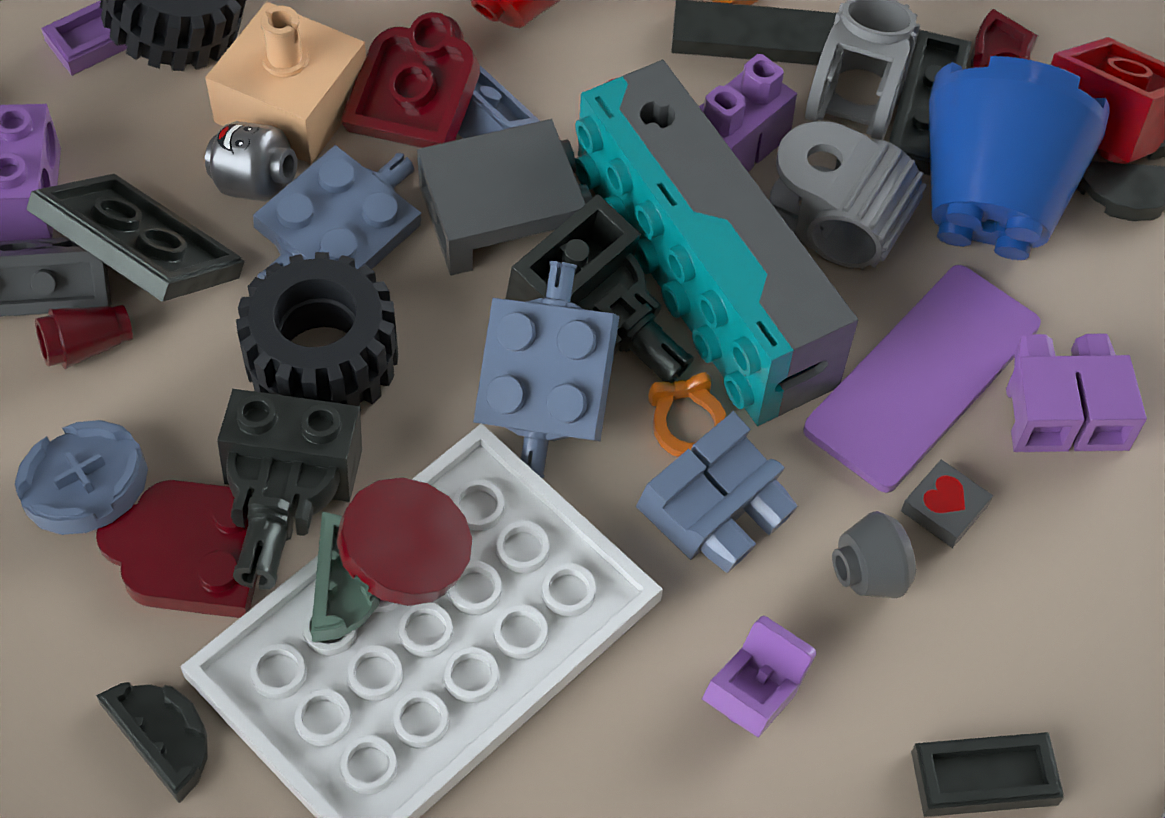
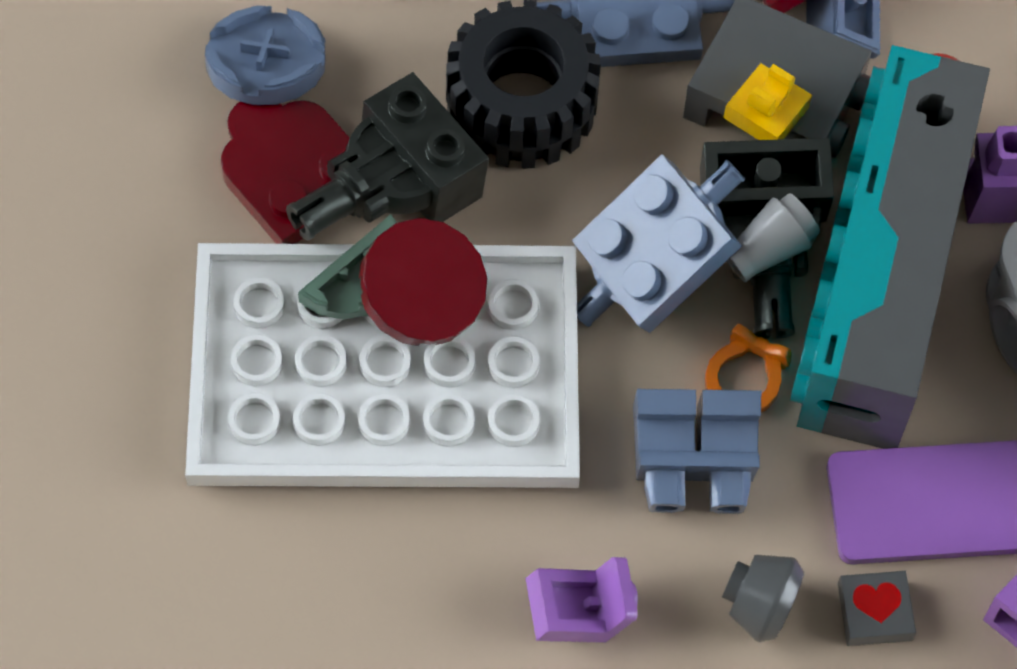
camera: 45 degrees right, 5 degrees up
(162, 730) = (151, 280): pearl dark grey tile -> none
(524, 206) = (768, 104): none -> yellow tile
(629, 291) = (774, 236): none -> light grey cone

